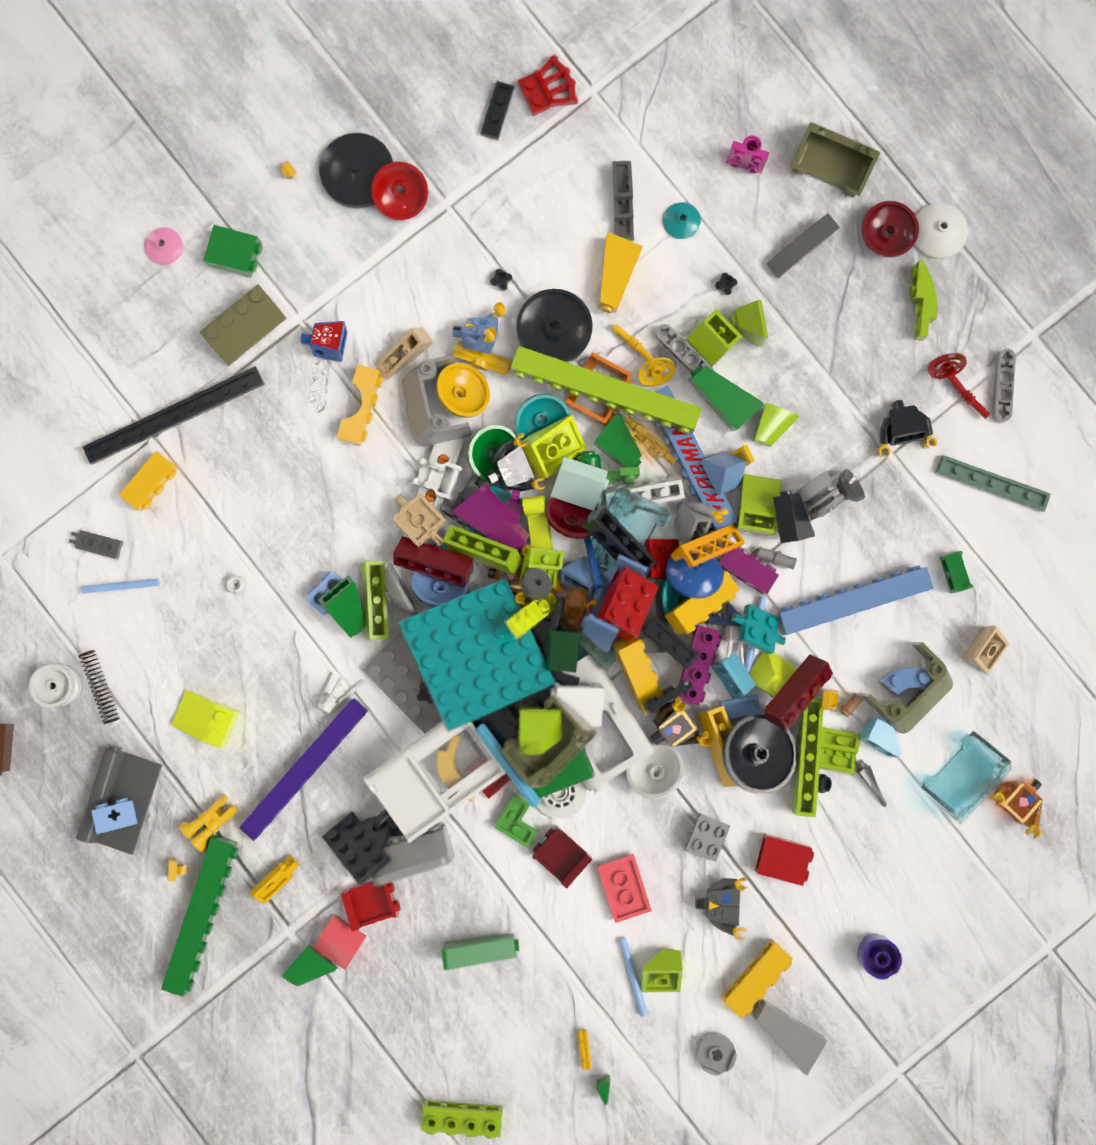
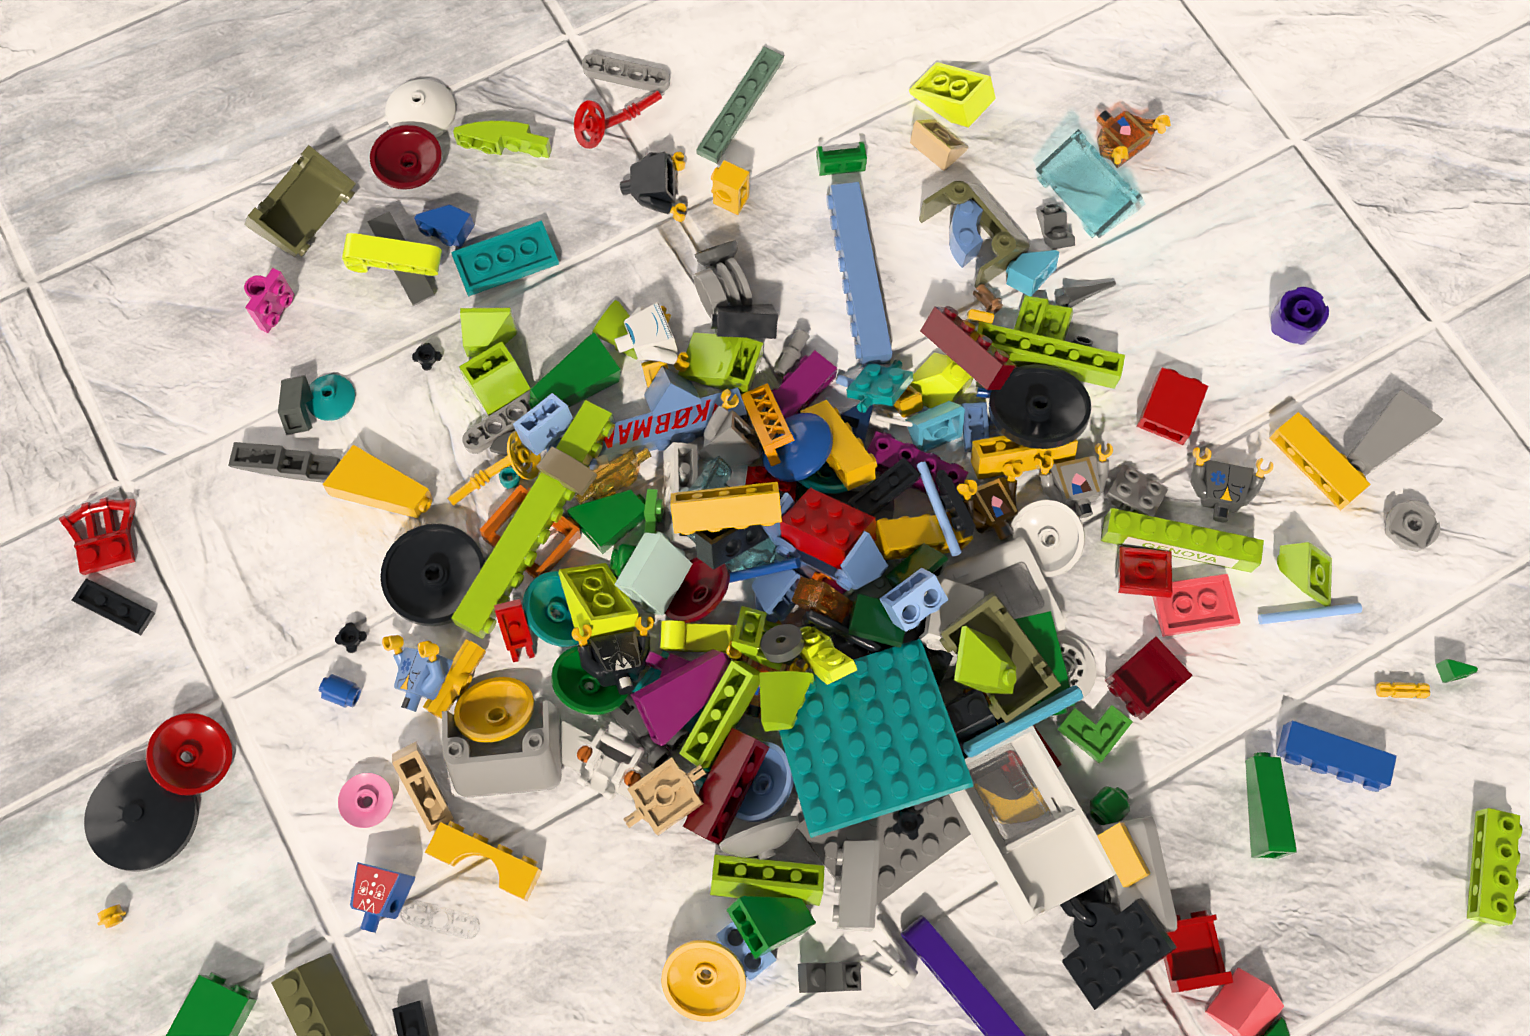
camera: 85 degrees left, 15 degrees down
(301, 568) = (701, 994): none -> yellow dish
(318, 652) = (829, 977): none -> dark grey slope
(376, 661) = (857, 885): none -> light grey slope
(383, 309) = (353, 796): none -> bright pink dish
(420, 845) = (1123, 854): none -> yellow tile
(461, 281) = (339, 691): none -> blue brick
(462, 835) = (1109, 805): none -> green head
(495, 589) = (781, 697): none -> lime slope
(521, 391) = (514, 628): none -> red hinge
(525, 1001) = (1336, 756): none -> blue brick
(578, 673) = (911, 594): none -> light blue brick
(607, 673) = (922, 557): none -> dark green slope
(624, 525) = (726, 508): none -> yellow brick
(637, 361) = (503, 476): none -> teal hinge
(641, 405) = (567, 471): none -> dark tan slope
(643, 848) = (1145, 572): none -> red tile
(662, 685) = (939, 509): none -> light blue bar
(672, 874) = (1183, 540): none -> lime brick
(673, 194) = (291, 407): none -> pearl dark grey slope
(678, 381) = (543, 424): none -> light blue brick
(707, 789) = (1076, 481): none -> light grey torso
(750, 654) = (909, 402): none -> yellow slope
(767, 447) = (652, 337): none -> white torso
(800, 237) = (371, 251): none -> neon yellow beam
(818, 324) = (505, 258): none -> teal plate
(839, 273) = (447, 224): none -> blue slope
(909, 487) = (730, 187): none -> yellow brick
(925, 752) = (1054, 227): none -> dark grey slope
(1035, 656) = (954, 93): none -> neon yellow slope

